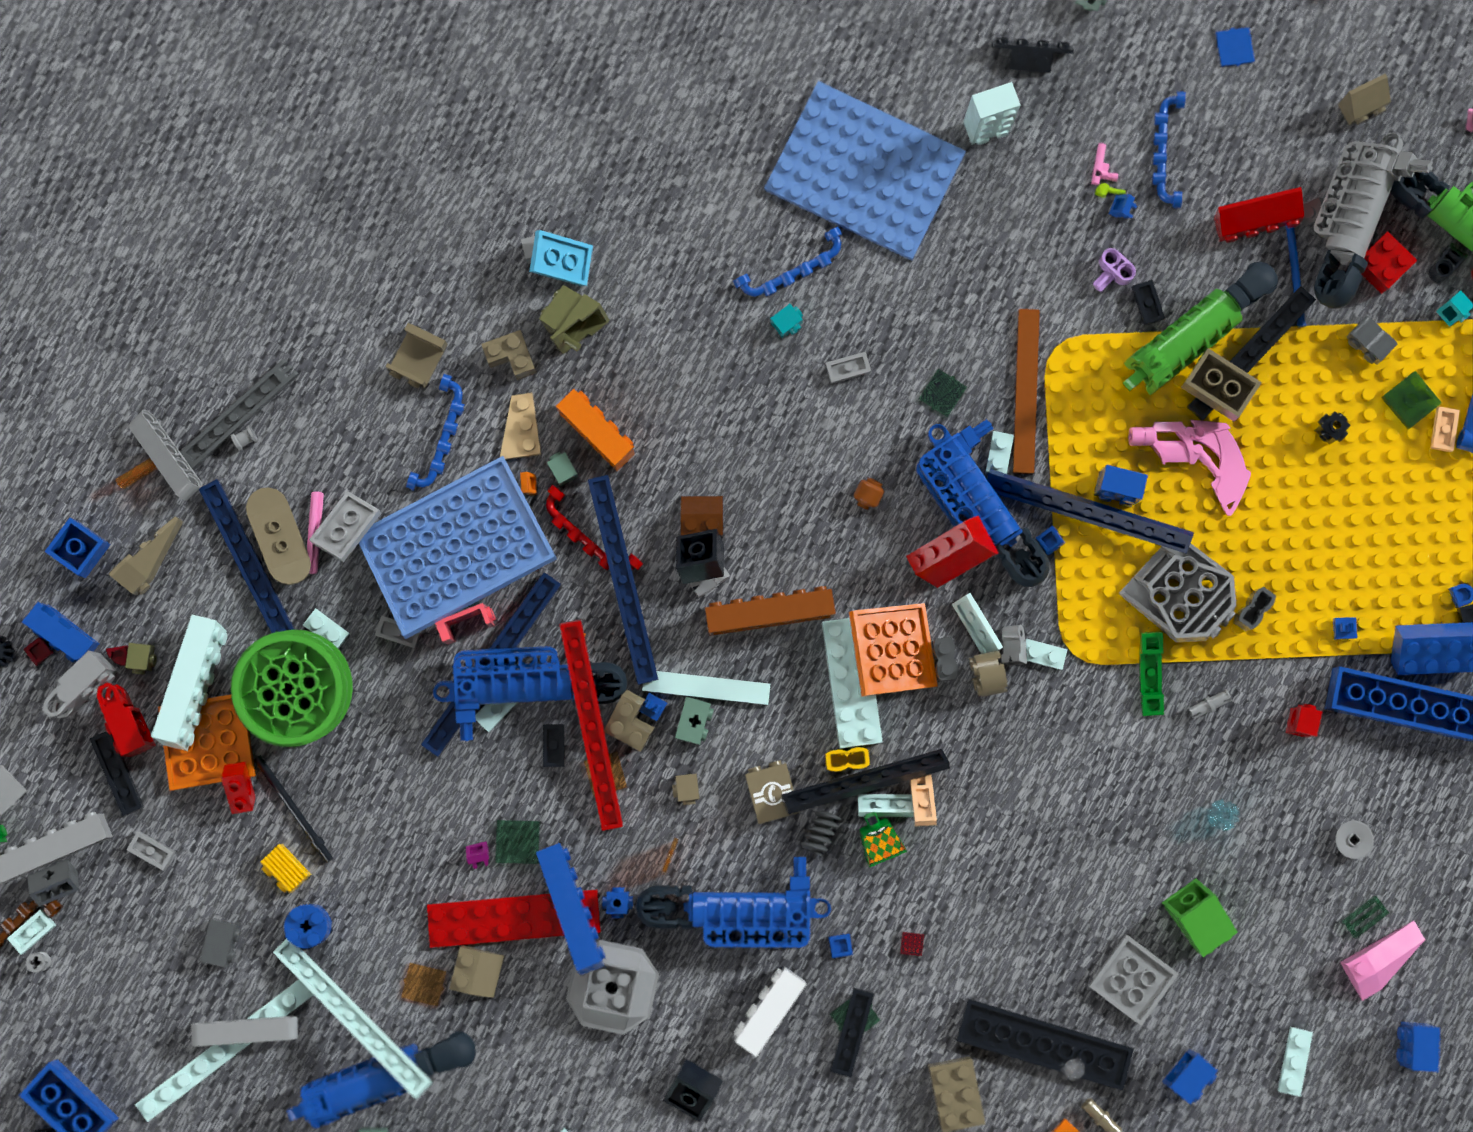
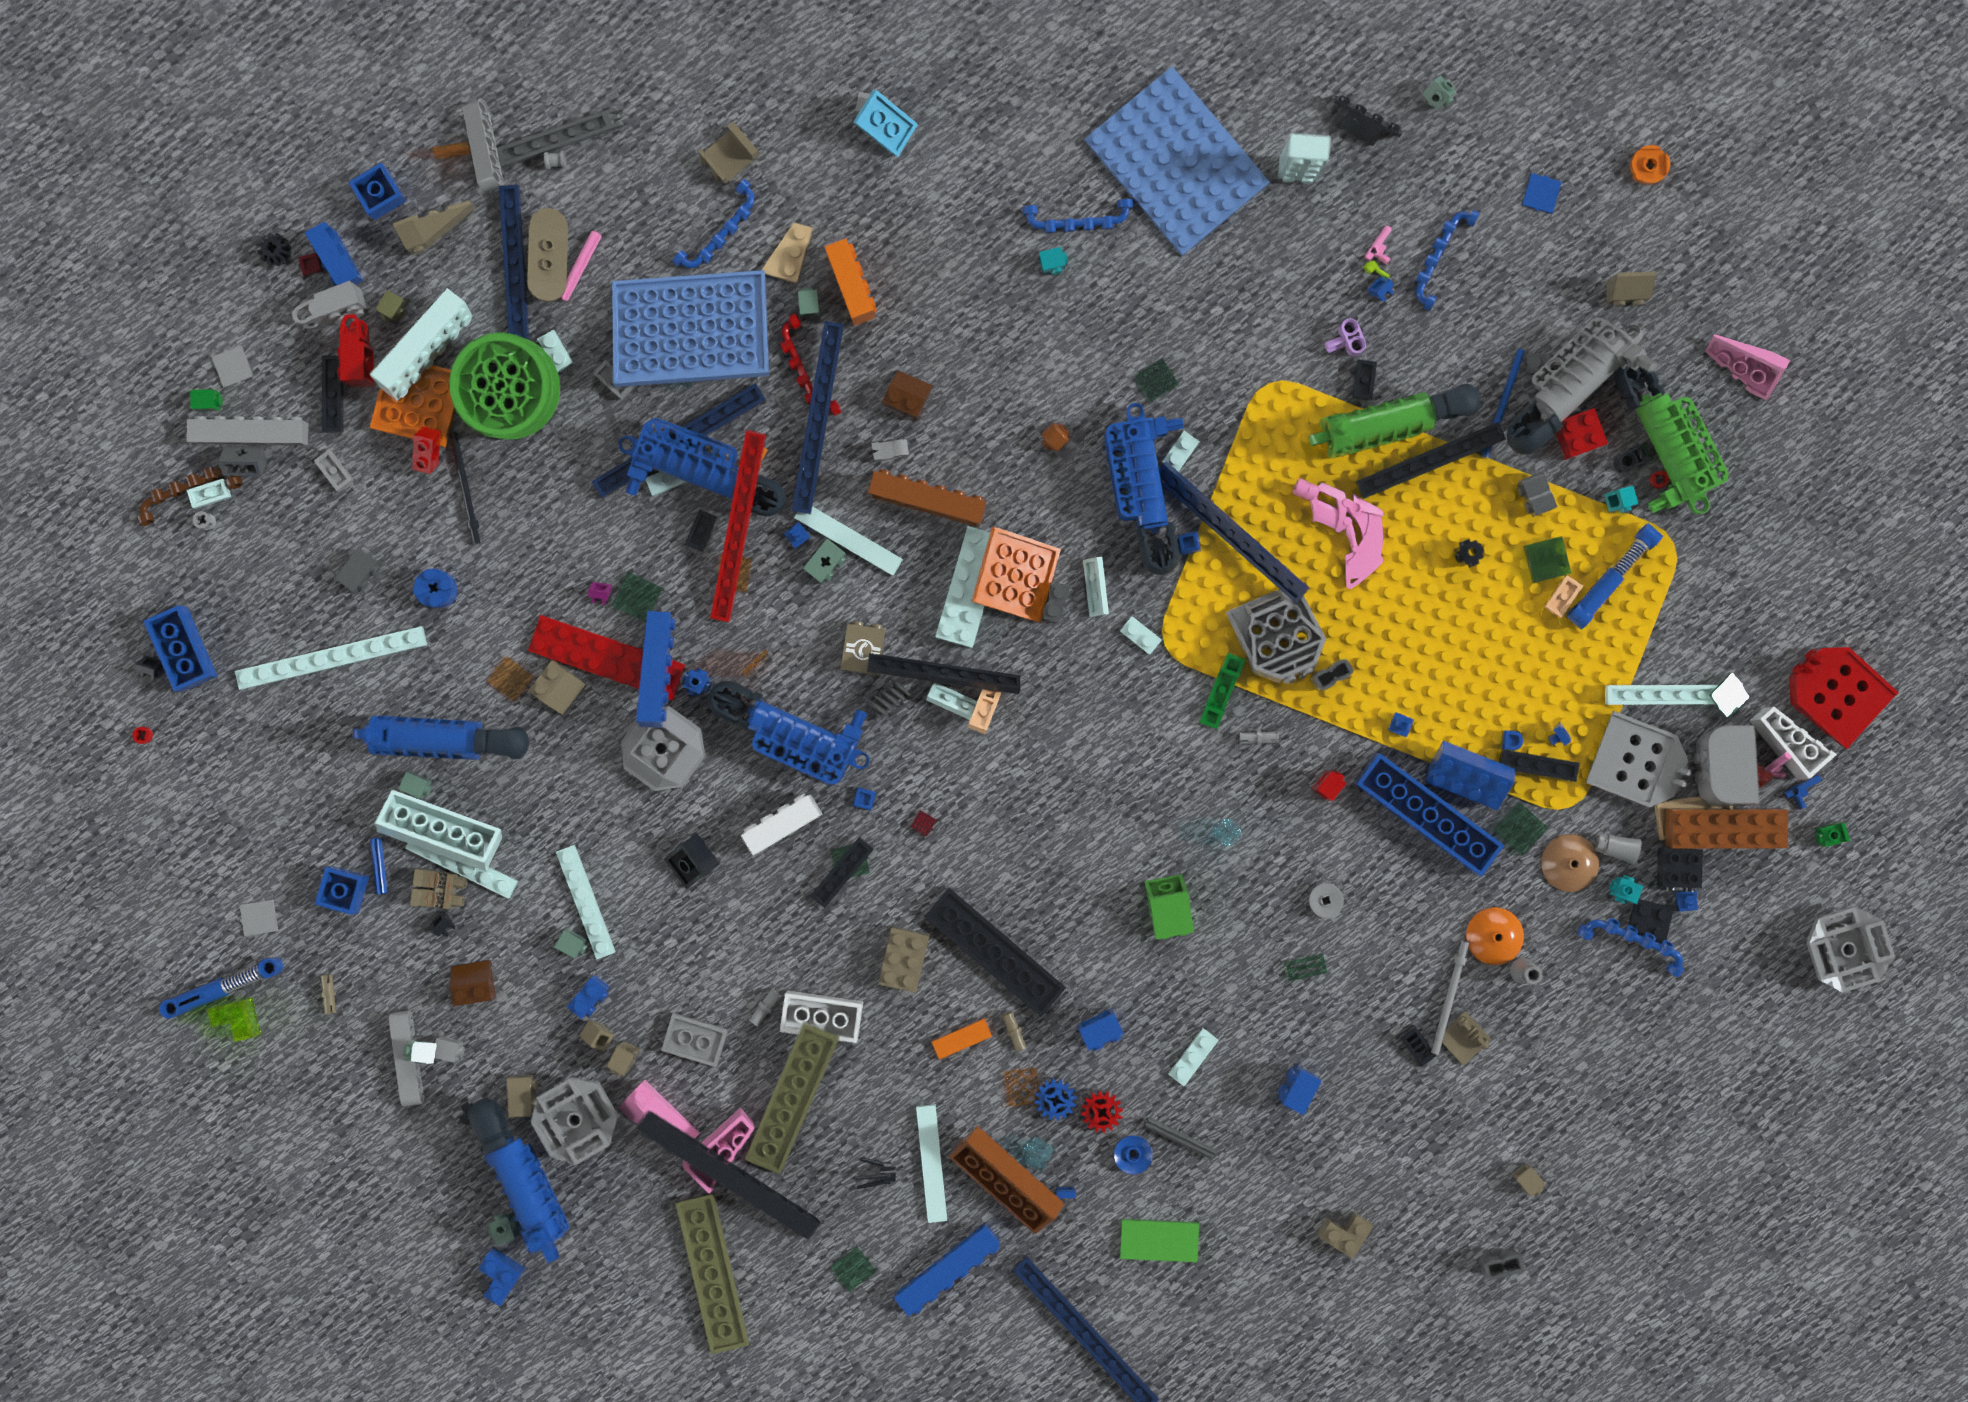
camera: 25 degrees right, 5 degrees up
(118, 654) = (374, 296): dark red tile -> none
(244, 1031) = (347, 650): light grey beam -> none
(285, 869) = (437, 534): yellow brick -> none
(345, 526) = (607, 271): light grey plate -> none
(353, 1018) = (439, 679): light aqua plate -> none
(444, 625) = (653, 390): coral panel -> none
(513, 349) = (811, 183): dark tan brick -> none
(528, 483) = (775, 303): orange tile -> none
(572, 318) = (871, 179): olive piece -> none
(624, 724) = (767, 538): dark tan brick -> none
(686, 789) = (794, 614): dark tan brick -> none
(700, 556) = (889, 426): black brick -> none
(848, 367) = (1086, 323): light grey plate -> none
(854, 759) = (942, 650): yellow brick -> none
(879, 840) = (934, 727): torso -> none
(953, 553) = (1101, 516): red slope -> none
(989, 674) = (1087, 630): dark tan brick -> none
(1014, 645) = (1118, 617): light grey leg -> none
(1026, 391) = (1227, 409): dark orange tile -> none
(1073, 1069) = (1008, 981): clear plate -> none
(1120, 485) = (1267, 522): blue brick -> none
(1133, 980) = (1091, 932): light grey plate -> none
(1221, 385) = (1390, 474): dark tan brick -> none
(1259, 215) = (1492, 346): red slope -> none
(1378, 963) = (1298, 1009): bright pink wedge -> none

